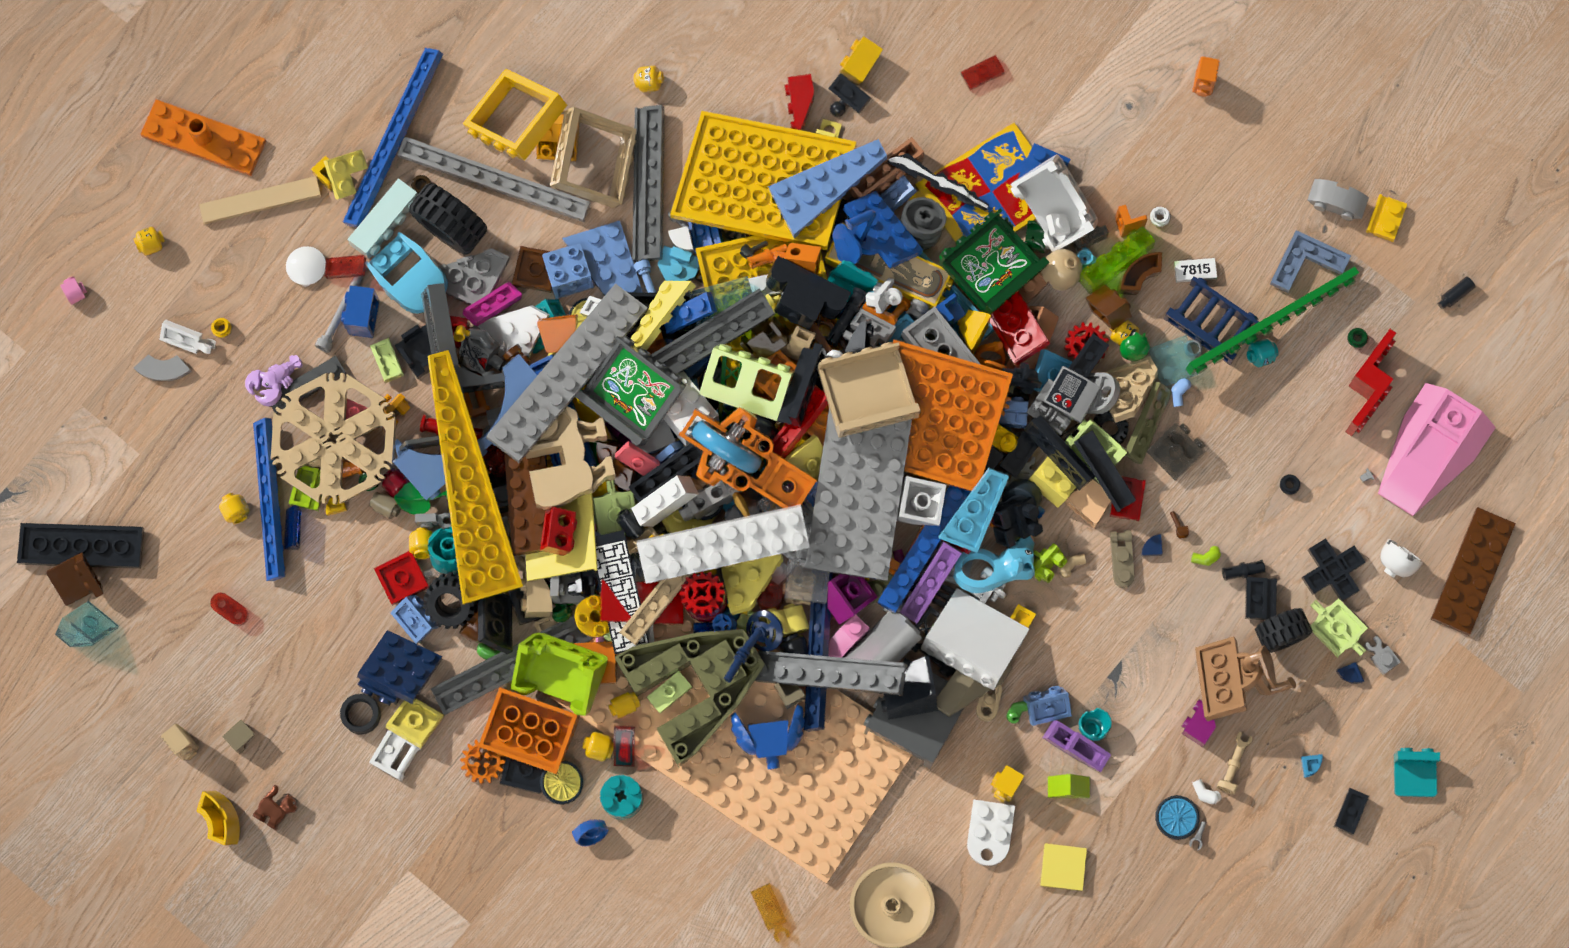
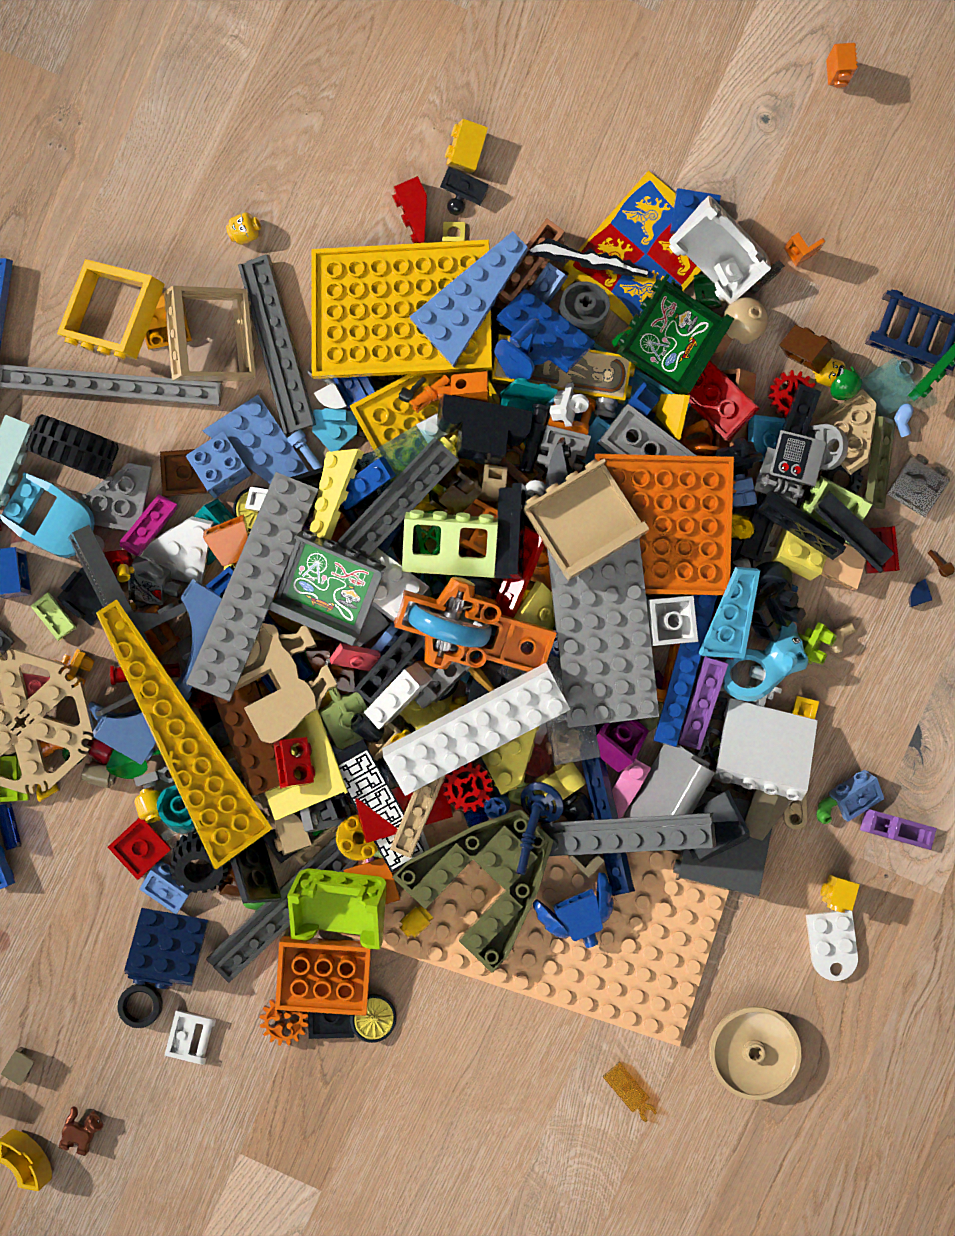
camera: 20 degrees left, 10 degrees up
(414, 722) = (200, 1001): light yellow plate -> none
(419, 182) = (31, 411): dark brown tile -> none
(514, 351) = (189, 573): reddish brown wheel -> none
(561, 613) = (321, 841): dark green plate -> none
(590, 832) = (418, 1063): blue hat -> none
(598, 746) = (401, 970): yellow head -> none
(616, 786) = (450, 1027): teal brick -> none
(624, 746) = (428, 963): slope -> none
(669, 692) = (459, 893): yellowish green plate -> none
(982, 72) = (599, 124): clear red plate -> none
(1063, 867) = (918, 959): light yellow tile -> none
(1068, 786) = (901, 874): lime slope -> none
(1086, 253) = (771, 299): medium azure plate -> none
(1095, 724) = (912, 802): teal hair -> none
(1117, 260) = (801, 295): clear neon green brick -> none
(1122, 559) = (891, 615): dark tan plate -> none
(1140, 270) = (827, 302): reddish brown brick -> none
(1160, 211) = (834, 227): white plate -> none
(1199, 268) = (887, 279): white tile -> none

